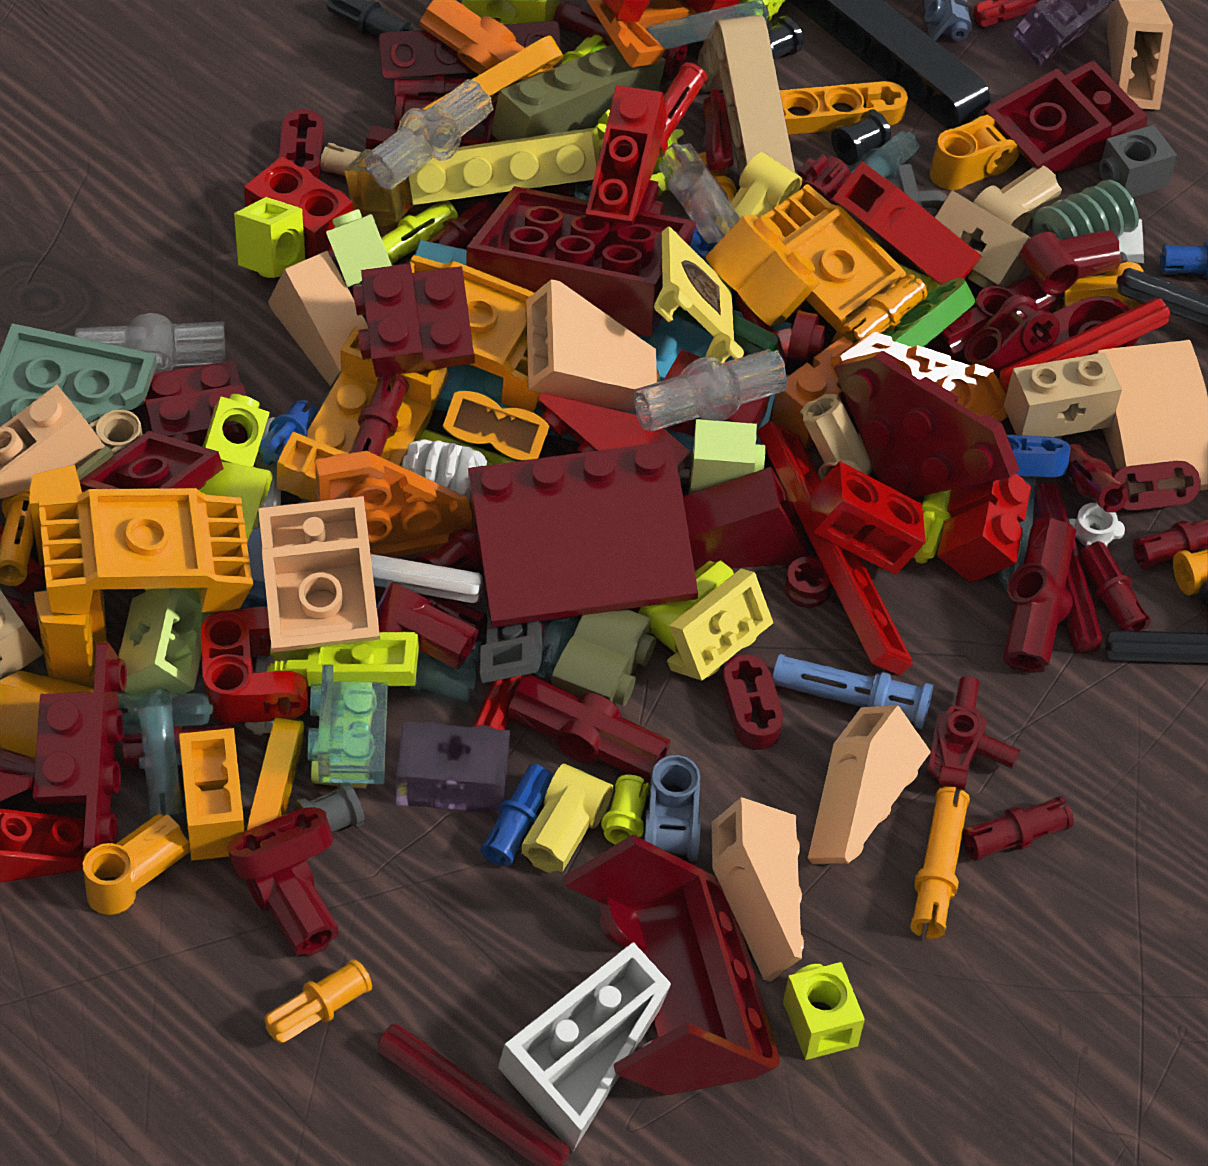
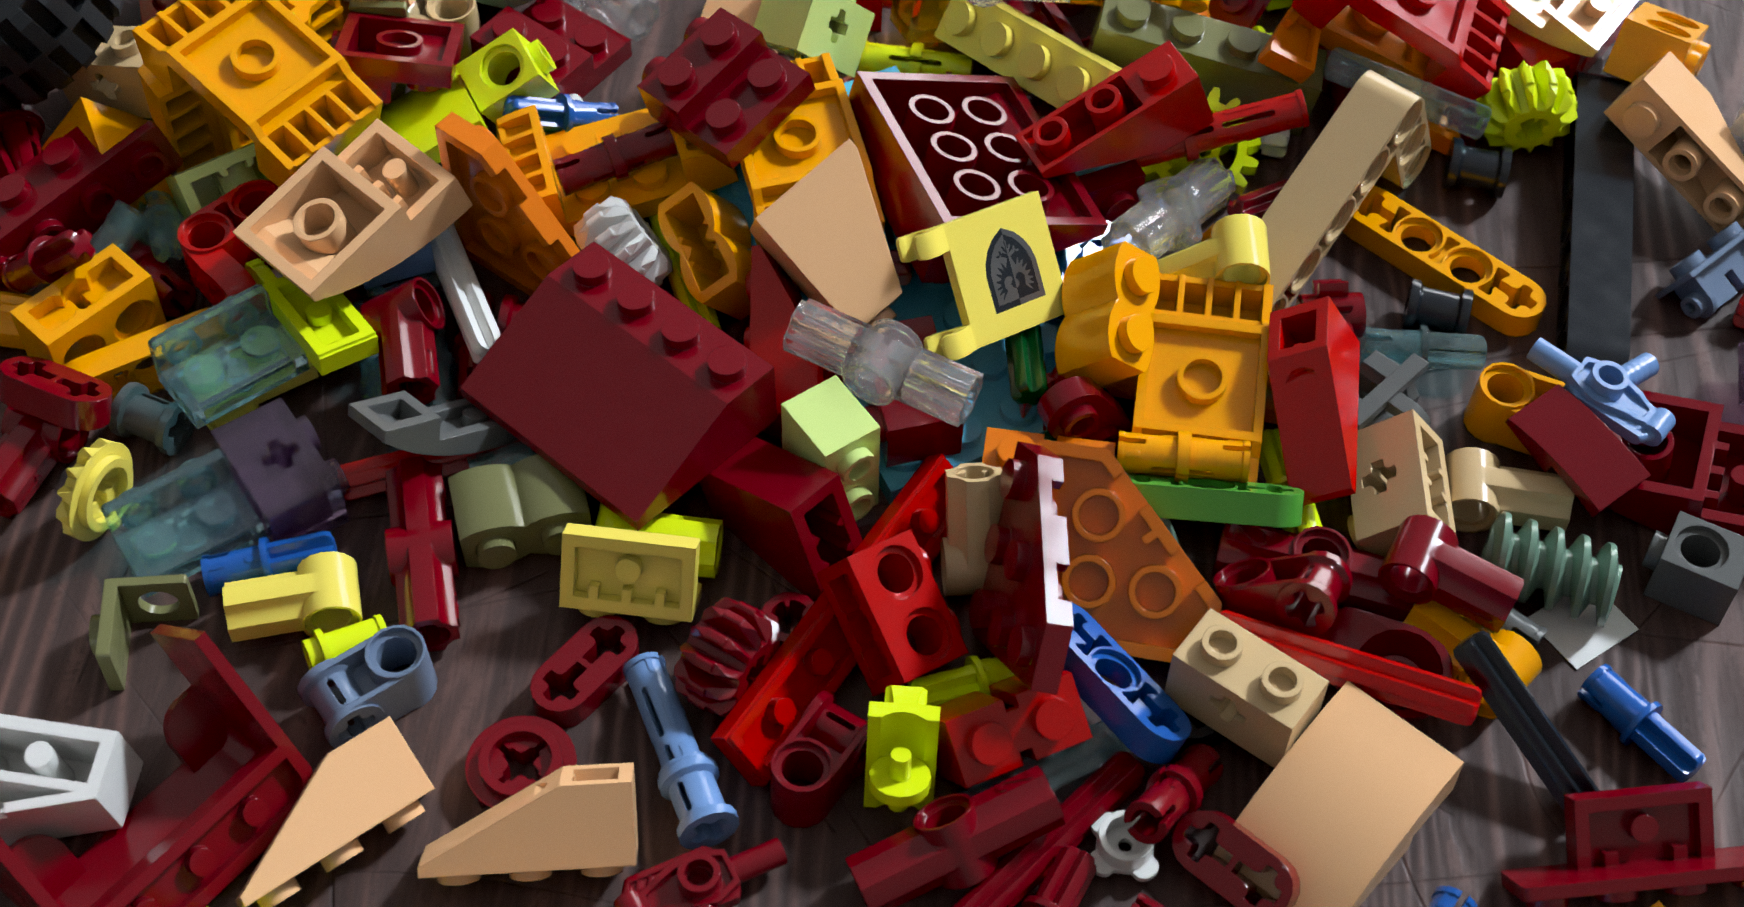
camera: 55 degrees right, 0 degrees up
(157, 779) = (47, 260): none -> dark red axle
(379, 870) = (95, 479): none -> light yellow gear
(440, 847) = (182, 517): none -> clear light blue bracket
(499, 924) = (123, 606): none -> olive bracket
(774, 765) = (519, 740): none -> dark red gear
(823, 617) = (725, 655): none -> dark red gear
(924, 625) = (823, 749): none -> dark red piece
(968, 578) = (901, 749): none -> neon yellow hips
(1008, 105) = (1610, 391): none -> medium blue piece
(1027, 144) = (1579, 447): none -> dark red slope

